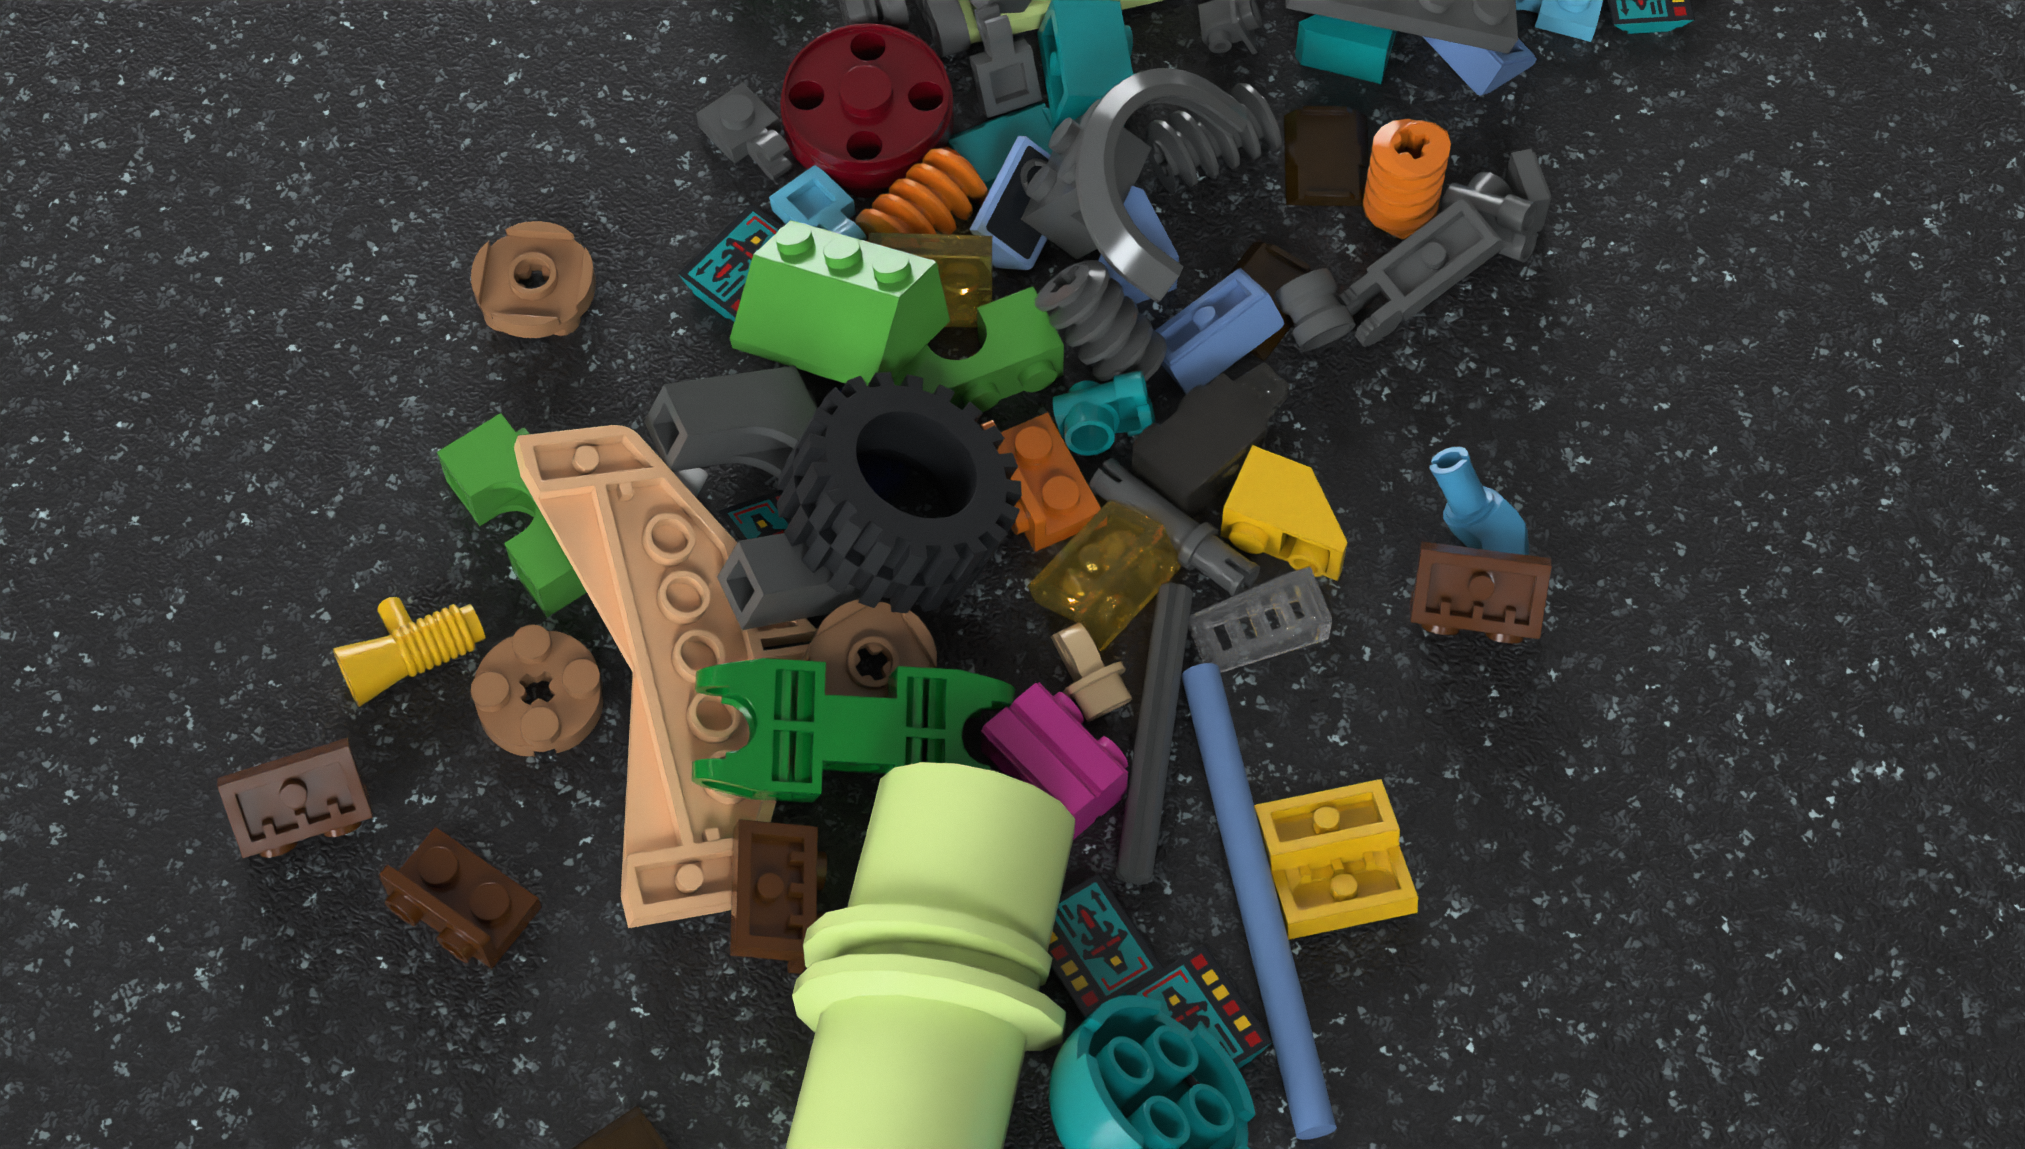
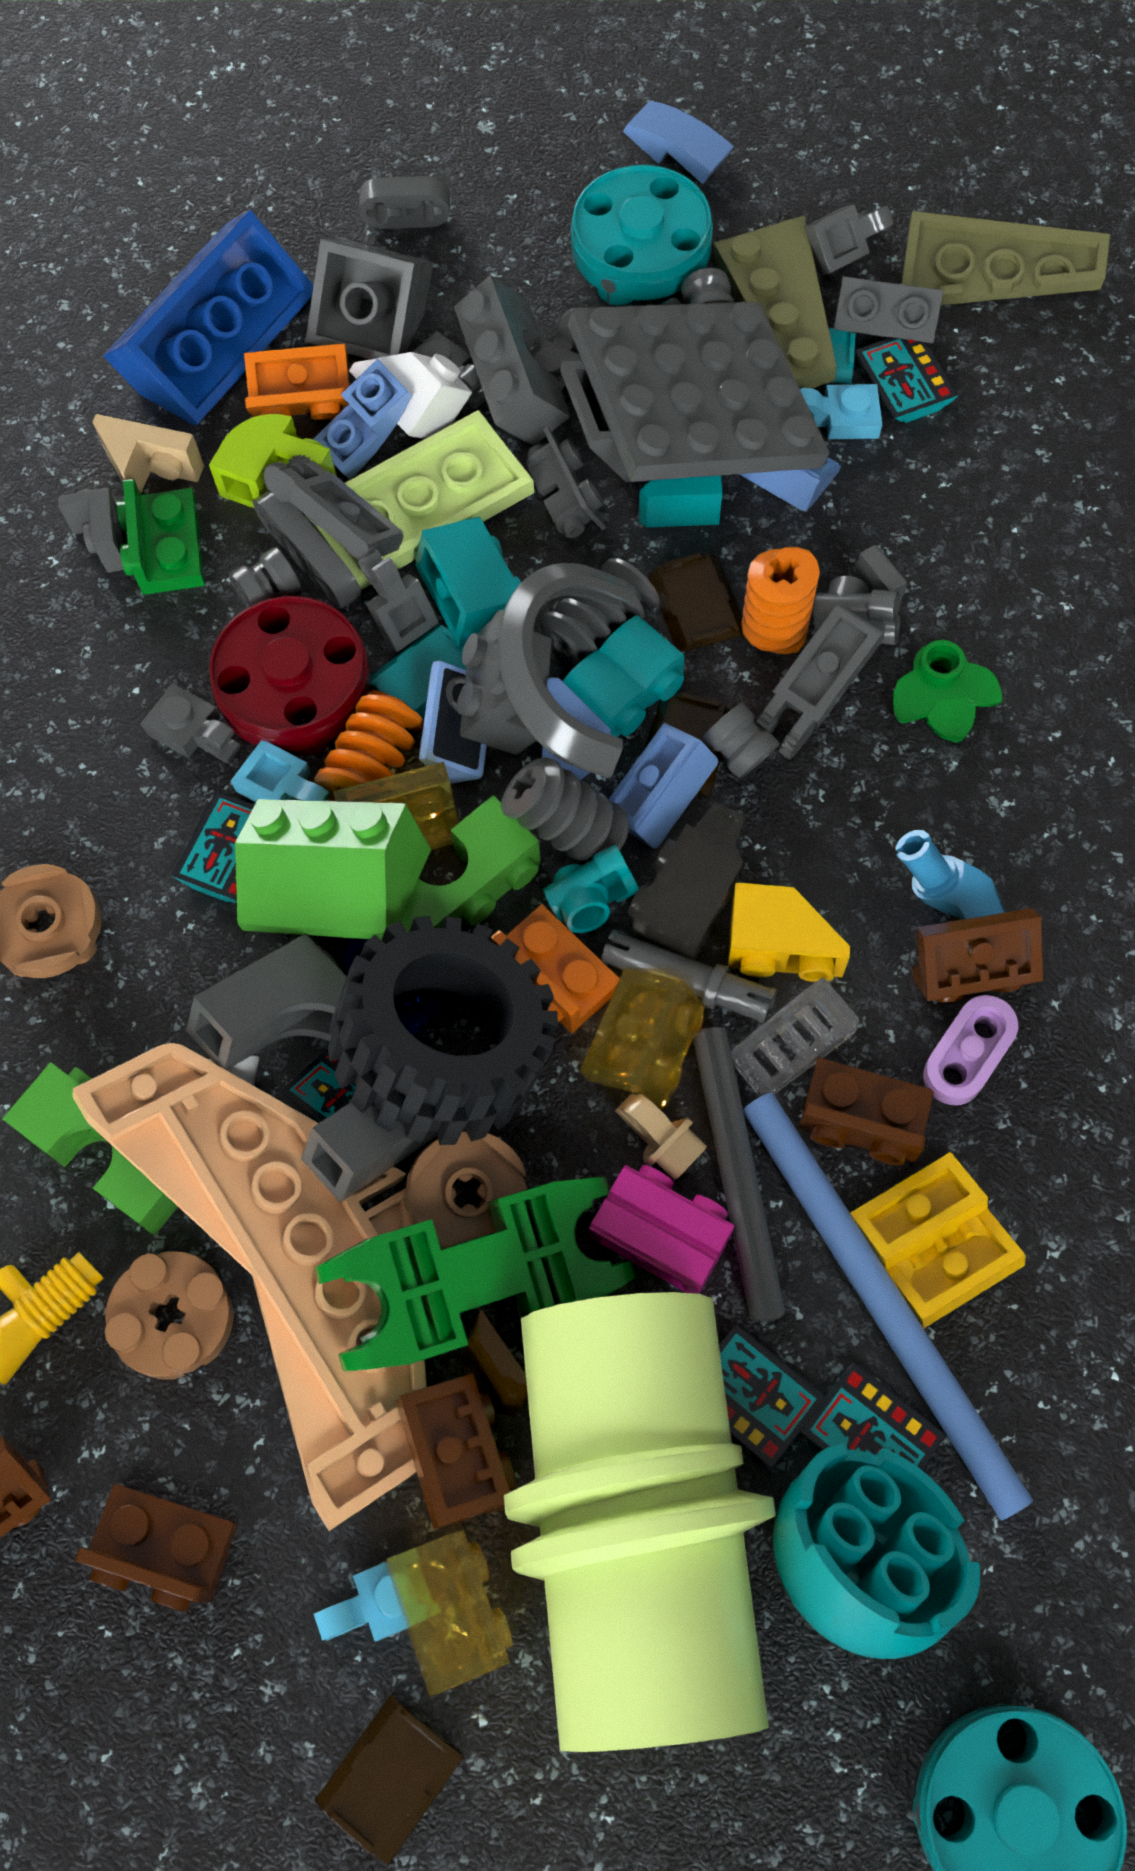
camera: 15 degrees left, 5 degrees up
(665, 1016) = (374, 1605): none -> medium azure plate
(718, 1033) = (449, 1611): none -> clear yellow bracket
(840, 830) = (494, 1367): none -> dark brown piece
(1219, 210) = (628, 675): none -> teal brick
(1308, 715) = (866, 1112): none -> reddish brown bracket
(1437, 690) = (968, 1052): none -> lavender plate
(1554, 331) = (945, 698): none -> green plate

